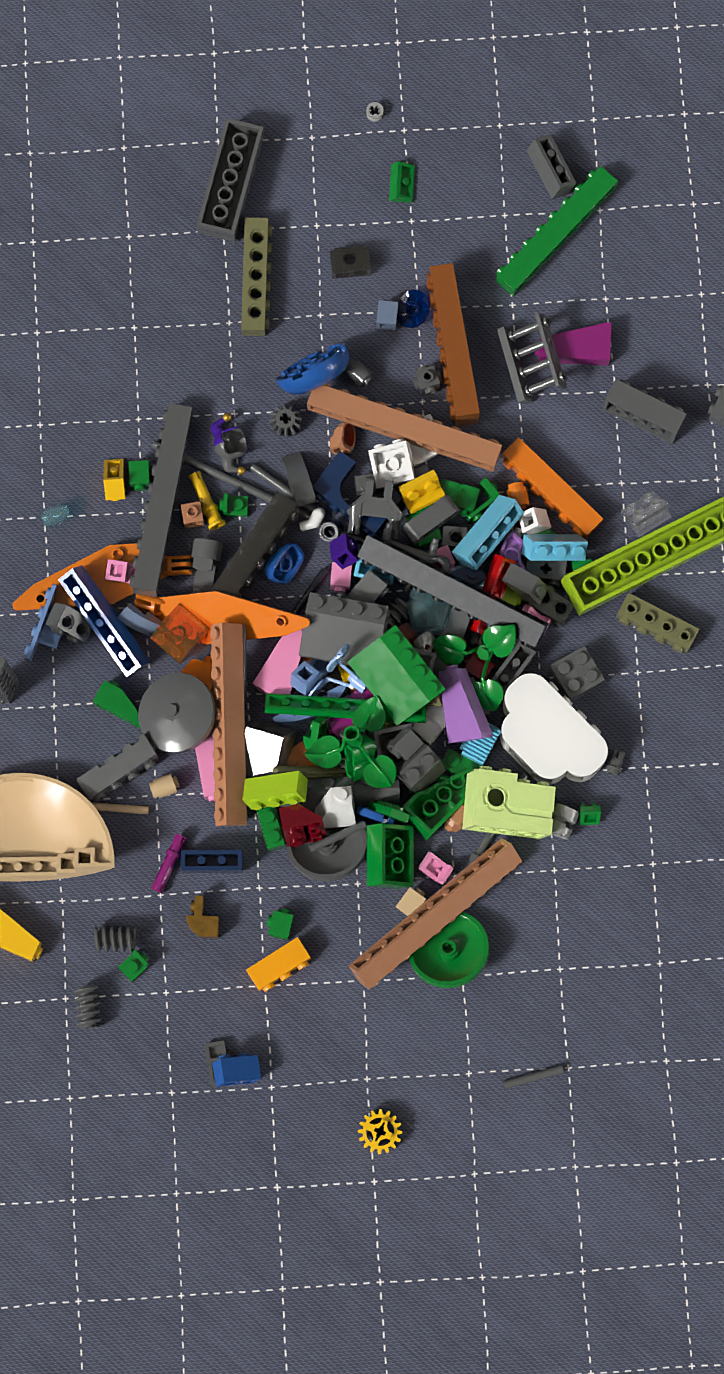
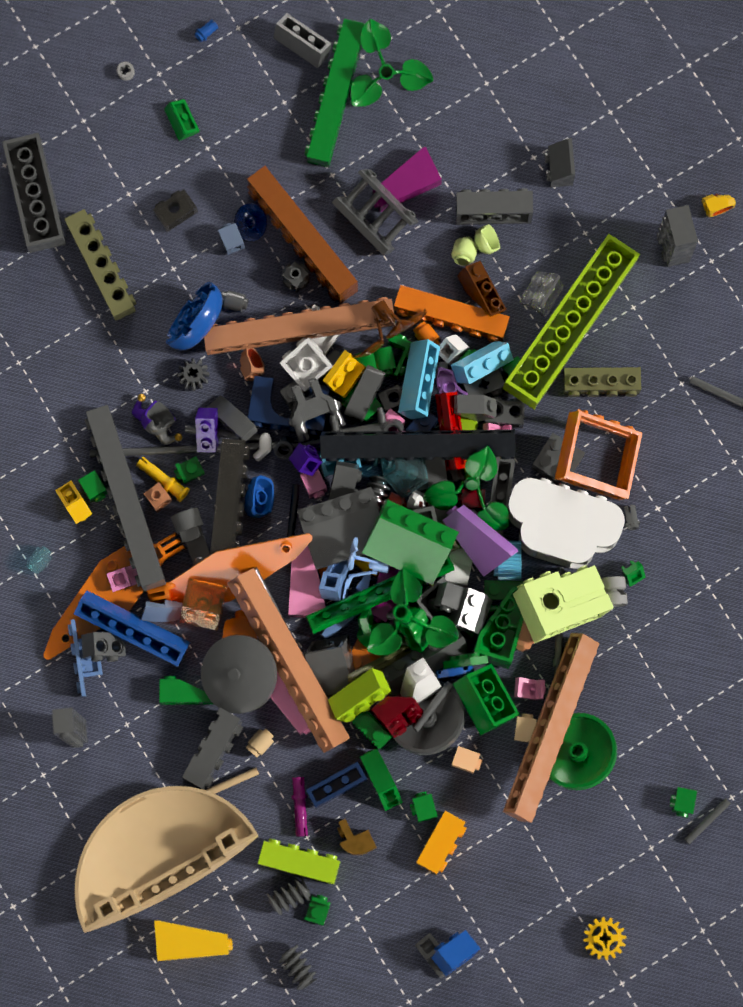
camera: 25 degrees left, 0 degrees up
(140, 913) = (298, 862): none -> lime brick
(255, 878) = (381, 779): none -> green slope
(269, 477) = (207, 430): none -> dark purple brick
(342, 902) = (466, 760): none -> light nougat brick
(468, 112) = (202, 33): none -> blue pin
(487, 456) = (384, 314): none -> reddish brown plant
(520, 1047) = (683, 802): none -> green brick
(584, 240) = (414, 73): none -> green plant
(591, 479) = (480, 288): none -> reddish brown slope
(595, 437) = (464, 251): none -> yellowish green head
(621, 438) = (486, 240): none -> yellowish green hair
(638, 713) = (628, 460): none -> orange window

